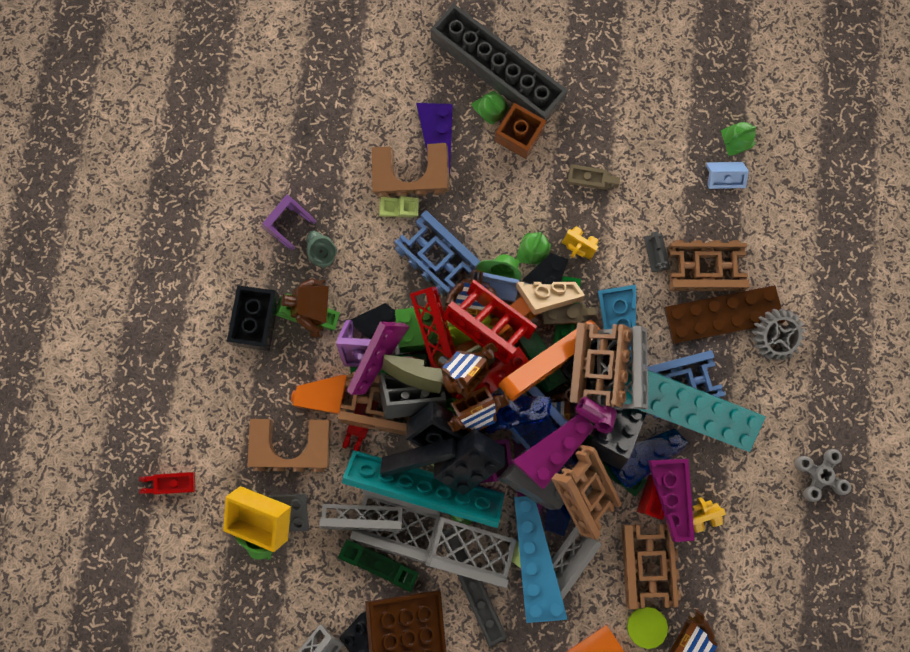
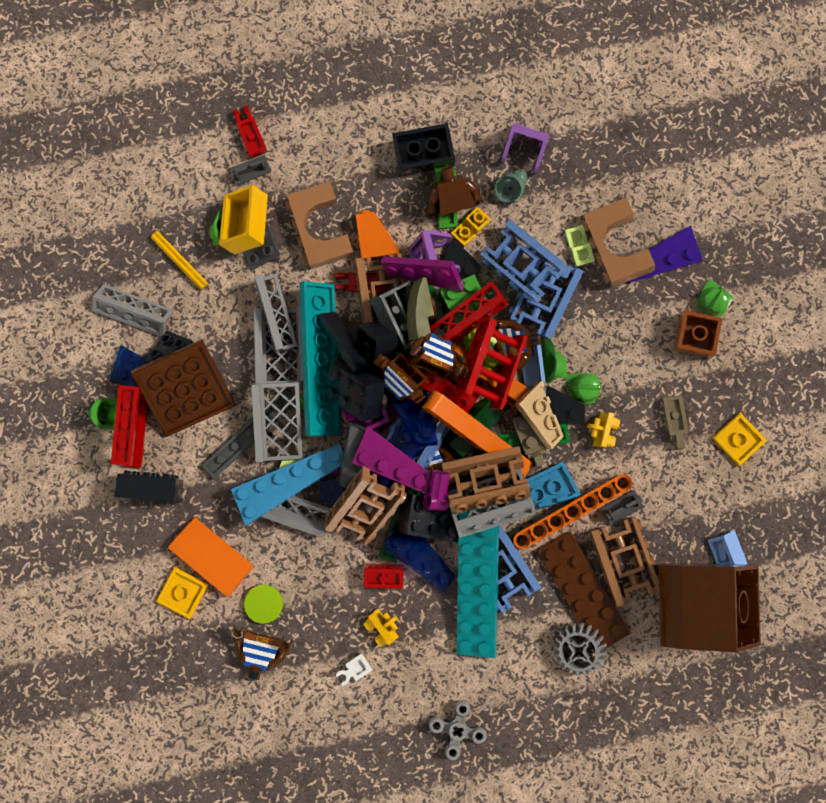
camera: 75 degrees right, 5 degrees up
(206, 495) = (250, 170): none -> dark grey hinge
(271, 600) = (179, 260): none -> yellow axle
(344, 300) = (470, 227): none -> yellow slope
(378, 564) = (240, 342): dark green slope -> none
(391, 248) = (532, 250): none -> medium blue fence
(497, 63) = (759, 290): dark grey brick -> none
(626, 129) = (739, 439): none -> yellow tile
(634, 566) = (314, 575): medium nougat fence -> none
(650, 290) = (581, 510): none -> orange beam
(674, 493) = (391, 590): magenta wing -> none
(737, 554) = (356, 667): none -> white plate
(739, 137) = (772, 555): bright green piece -> none
(777, 205) = (709, 606): none -> reddish brown brick

